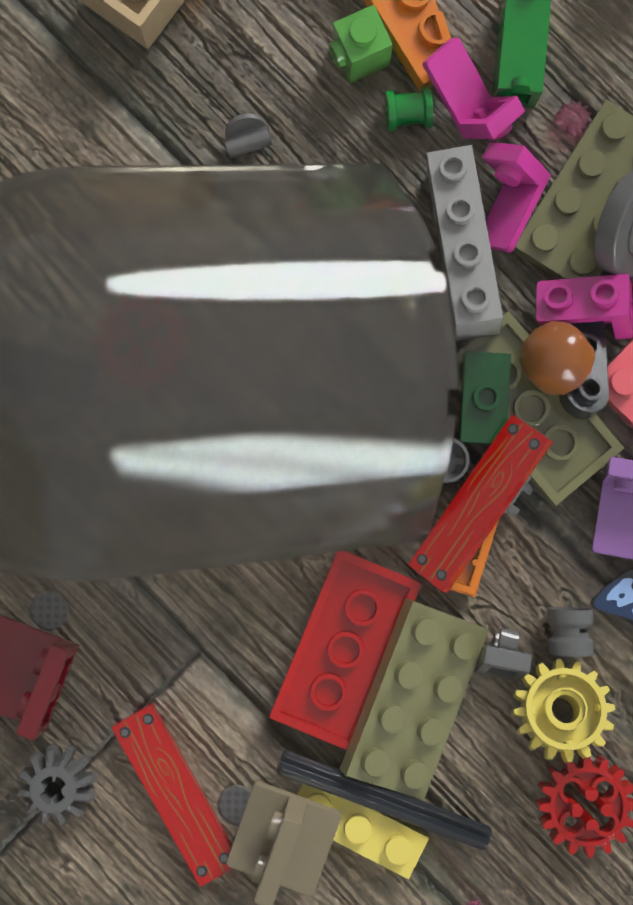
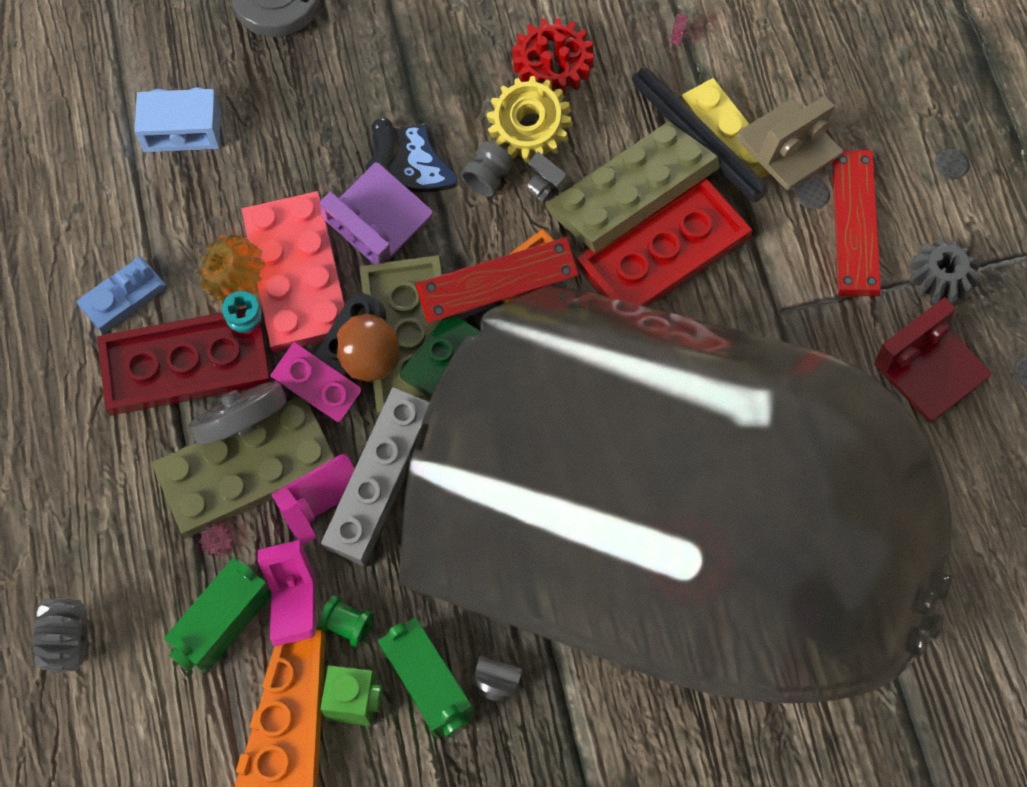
camera: 140 degrees left, 20 degrees down
(305, 99) = (426, 679): none -> green brick

